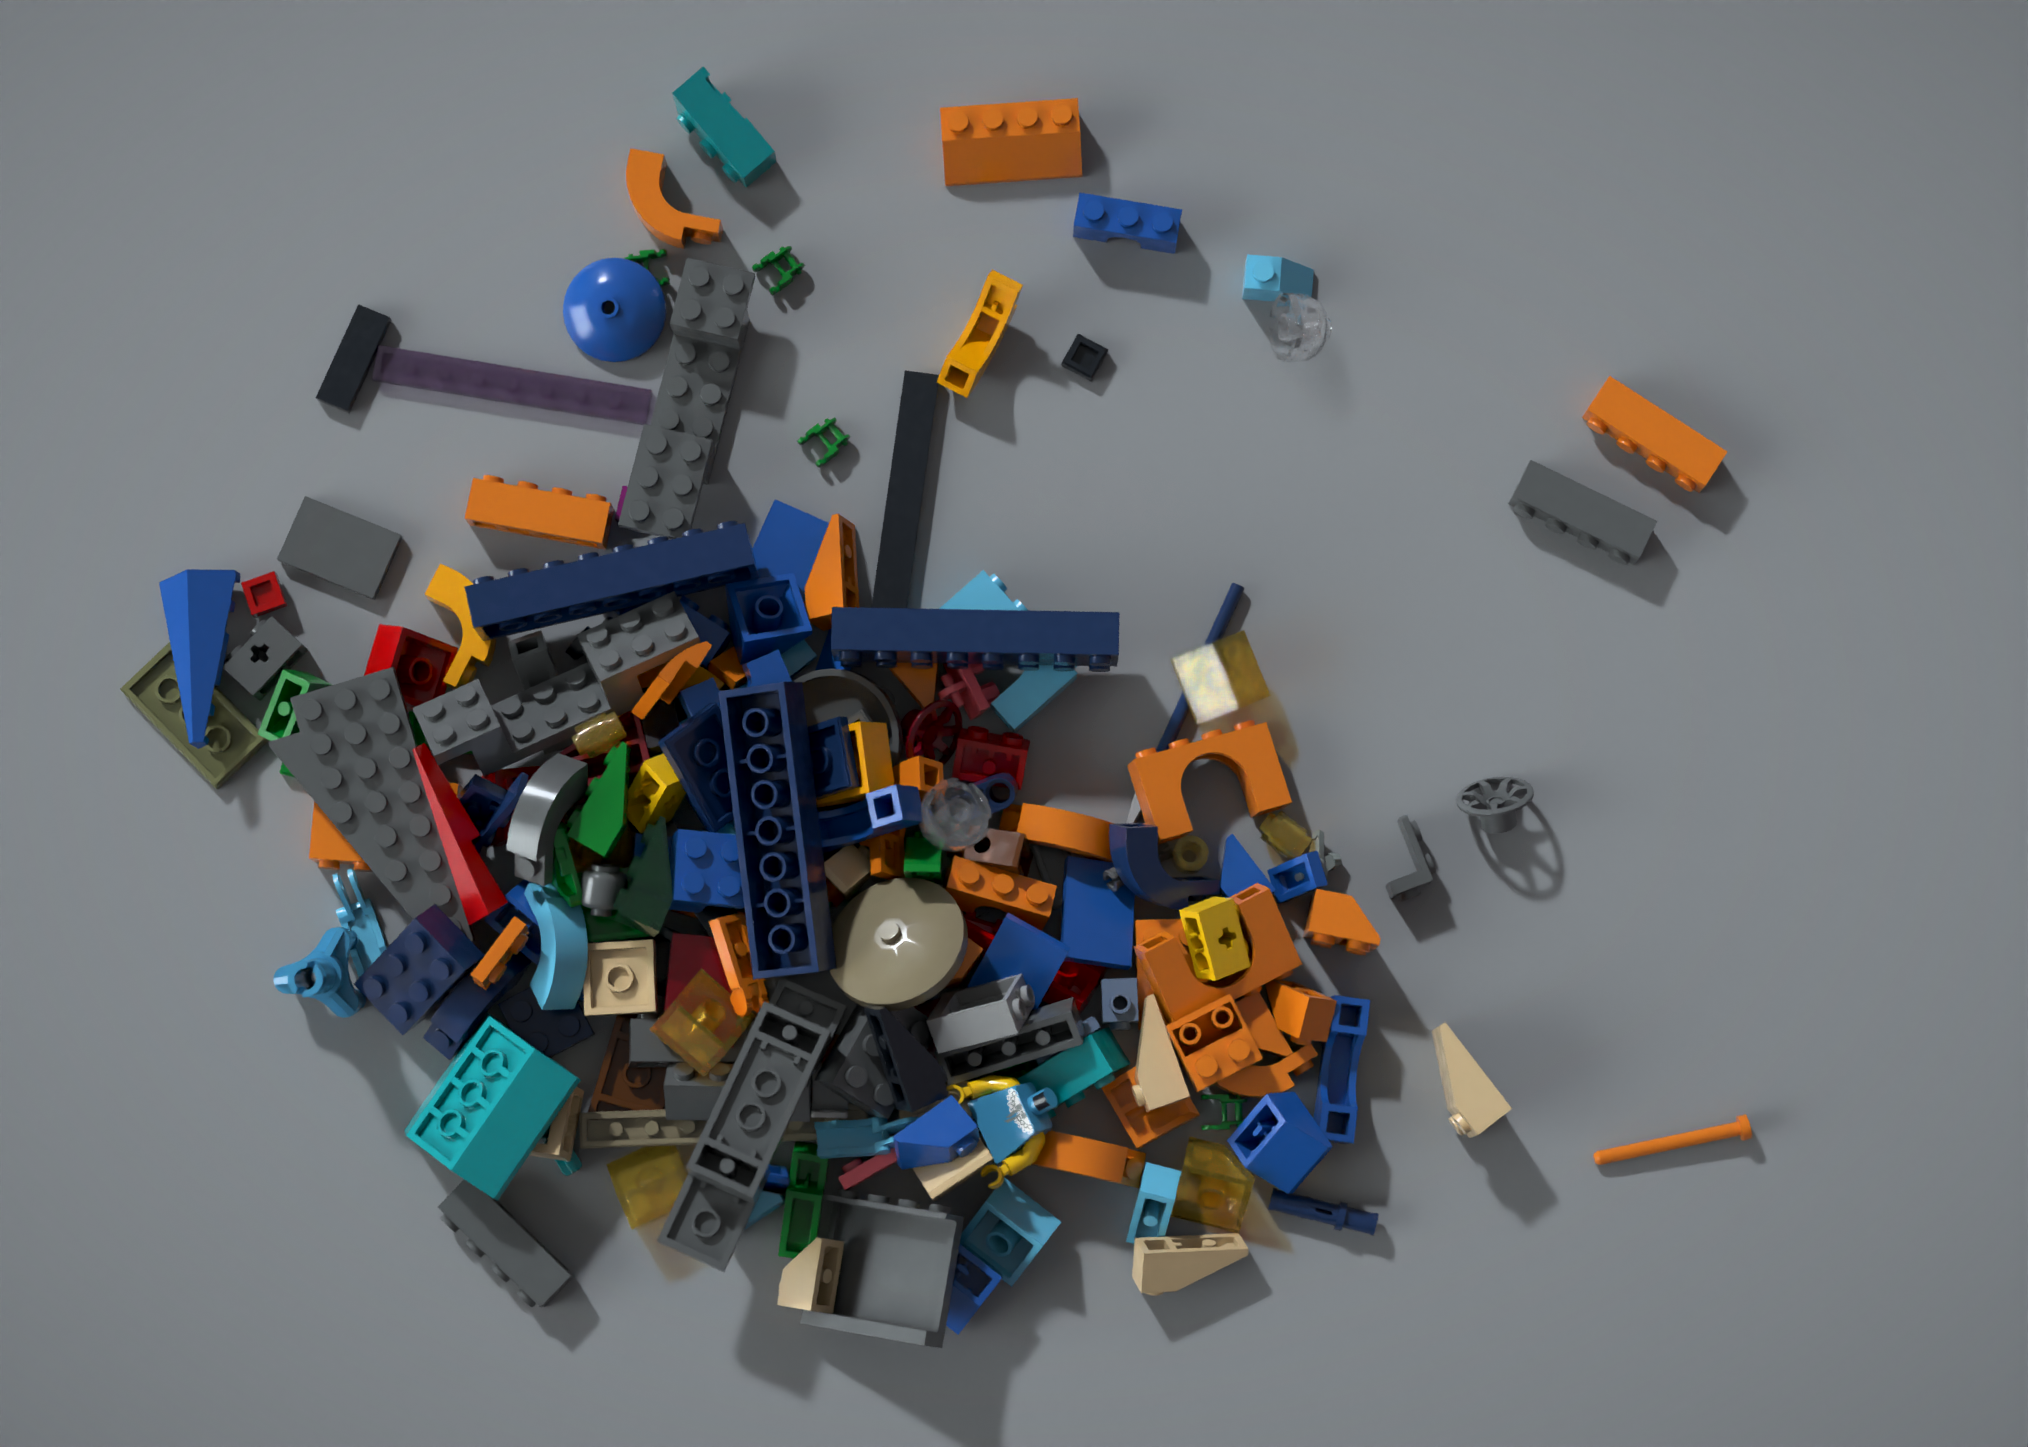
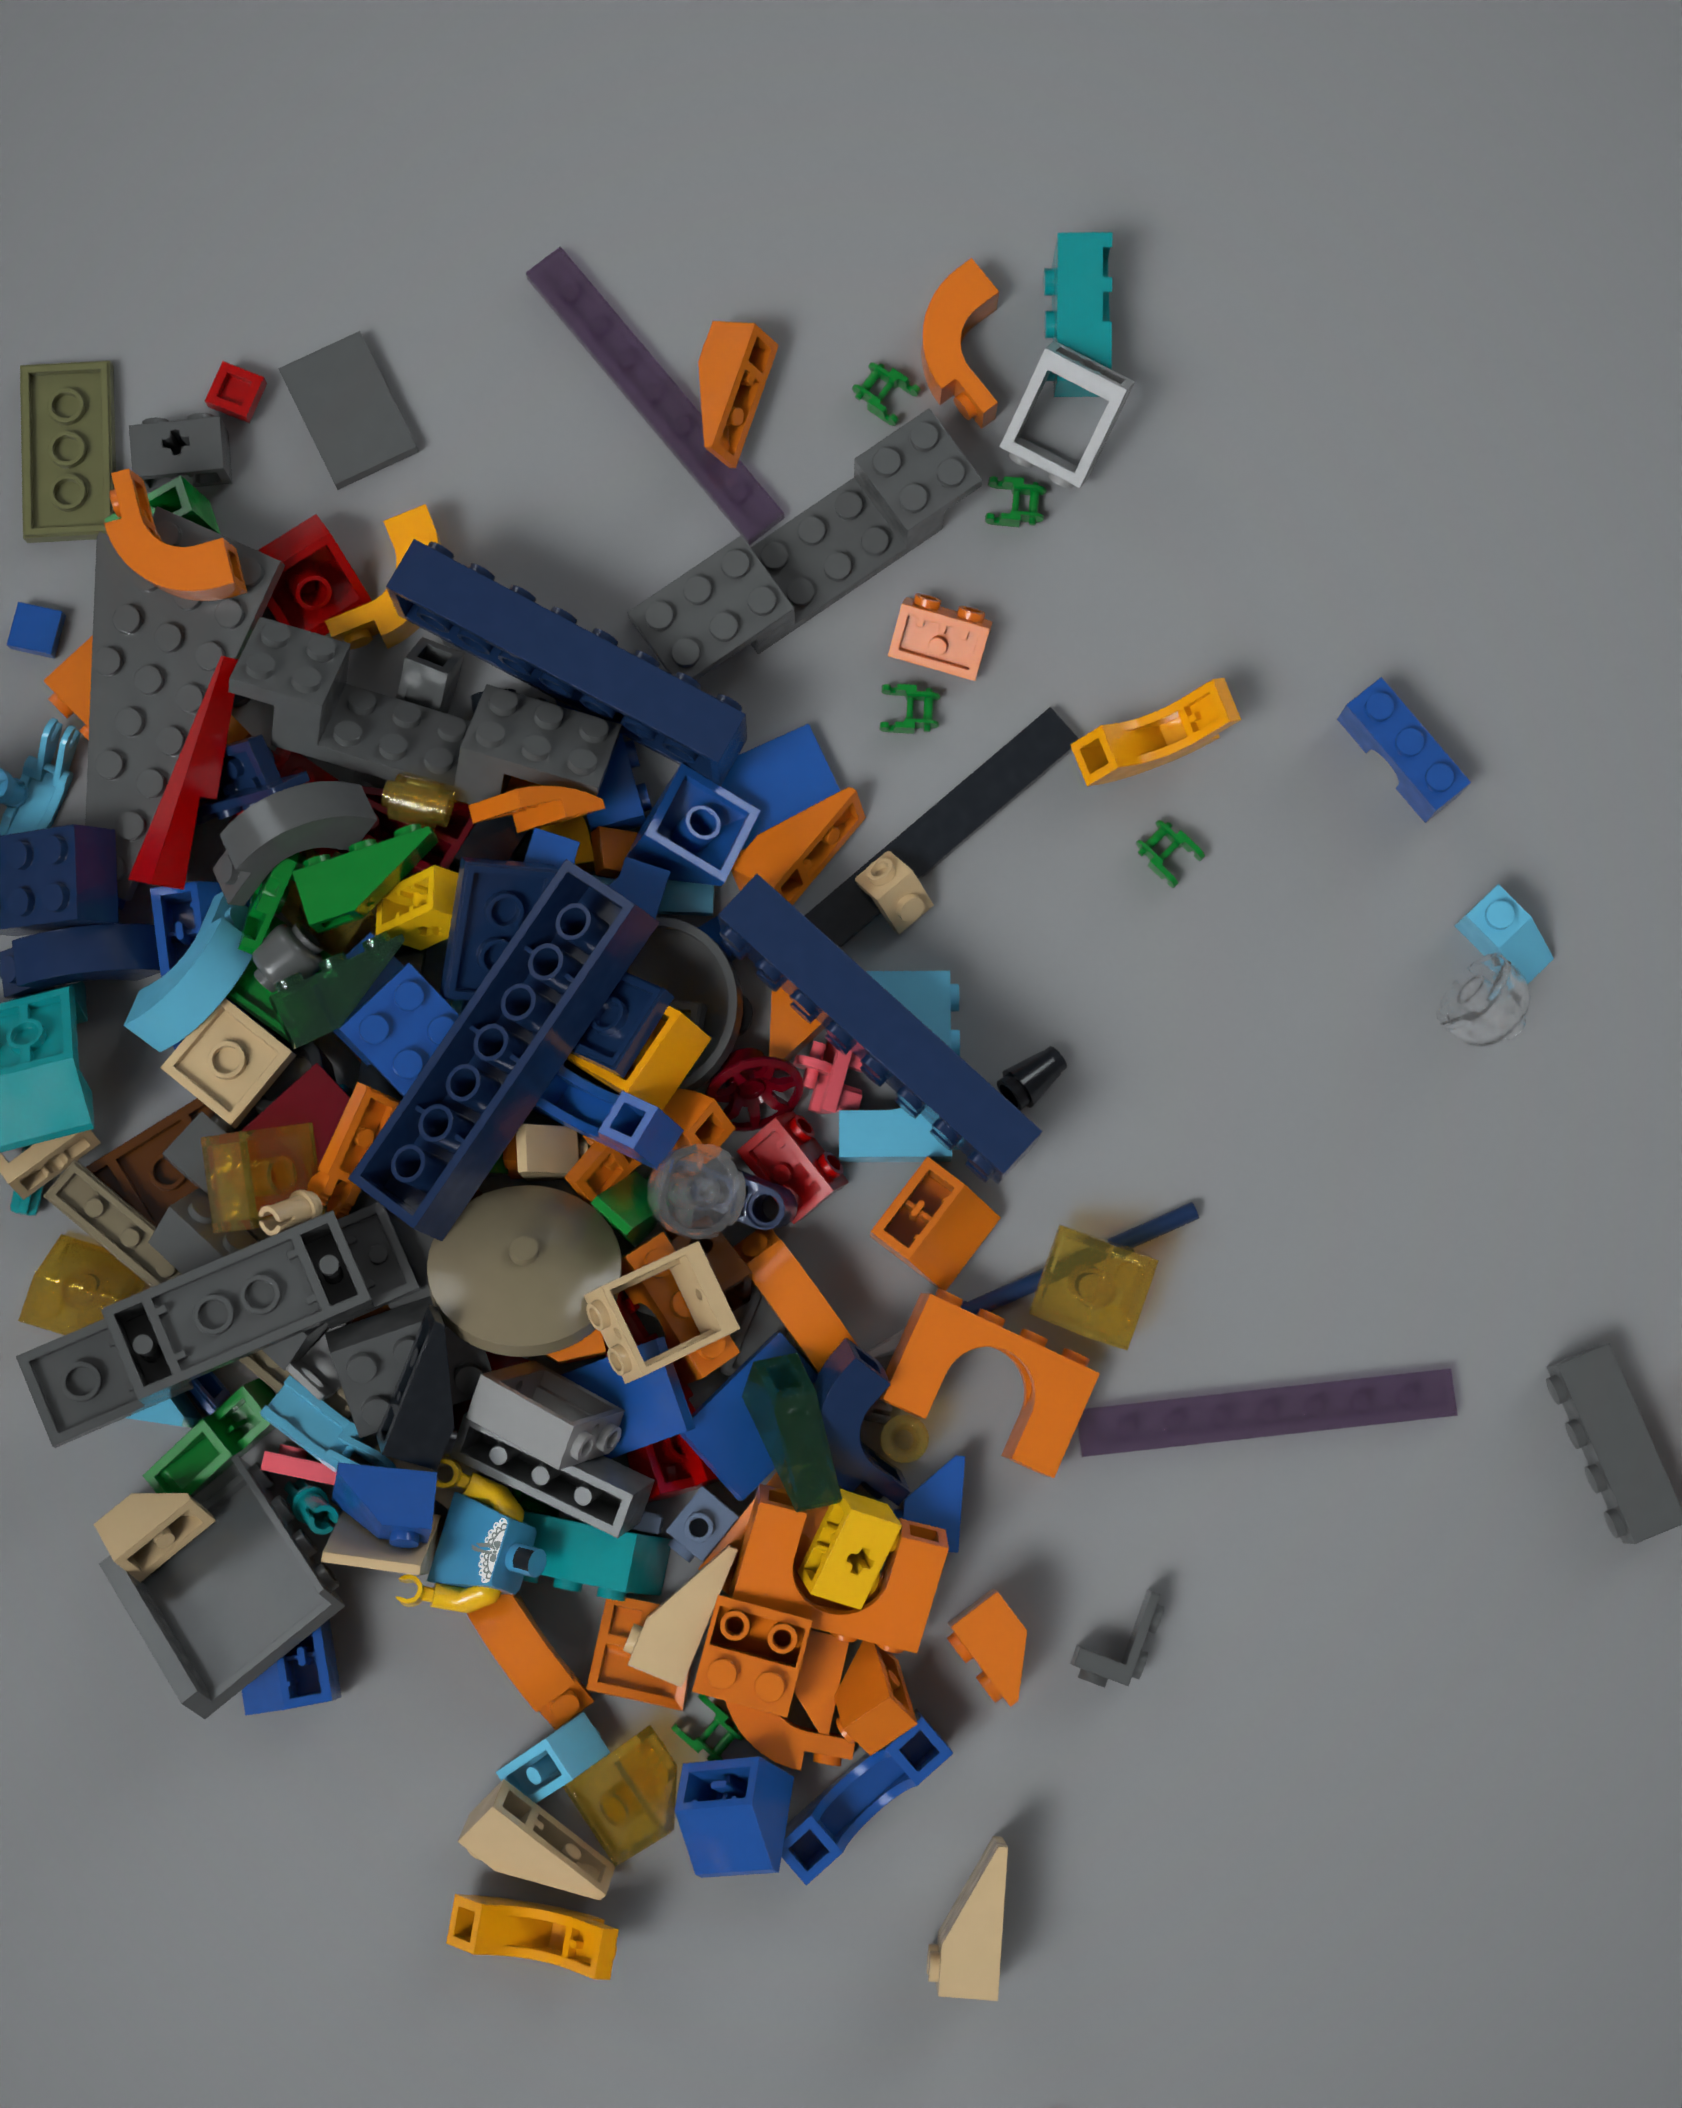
camera: 40 degrees right, 0 degrees up
(196, 620) = (145, 359): blue wedge -> none
(272, 834) = (36, 630): none -> blue tile
(343, 722) = (192, 573): none -> orange arch
(353, 358) = (525, 239): black tile -> none
(494, 962) = (128, 933): orange plate -> none
(539, 512) = (567, 539): orange brick -> none
(545, 1029) = (114, 1052): dark blue plate -> none
(553, 337) = (731, 380): none -> orange slope
(637, 313) = (836, 424): blue dish -> none
(741, 1021) = (295, 1210): none -> tan pin
(760, 161) = (1087, 375): none -> light grey window
(806, 383) = (940, 636): none -> orange bracket
(892, 1183) = (311, 1506): none -> teal axle
(910, 552) = (895, 891): none -> tan bracket
(1008, 870) = (700, 1294): none -> tan window
(1008, 1231) = (387, 1657): medium azure slope -> none
(1011, 142) = (1357, 570): orange slope -> none
(1044, 385) = (1178, 840): none -> green piece
(1081, 589) = (1029, 1079): none -> black cone
(1084, 357) = (1242, 848): black tile -> none
(1100, 720) = (935, 1224): none -> orange slope
(1122, 898) = (792, 1430): none -> clear green slope
(1228, 1306) = (533, 1932): none -> light orange arch
(1285, 835) = (1018, 1505): clear yellow brick -> none
(1304, 872) = (1005, 1562): blue piece -> none
(1324, 1211) = (719, 1925): dark blue pin -> none
(1376, 664) = (1266, 1412): none -> clear purple tile
(1495, 807) = (1258, 1668): dark grey wheel -> none

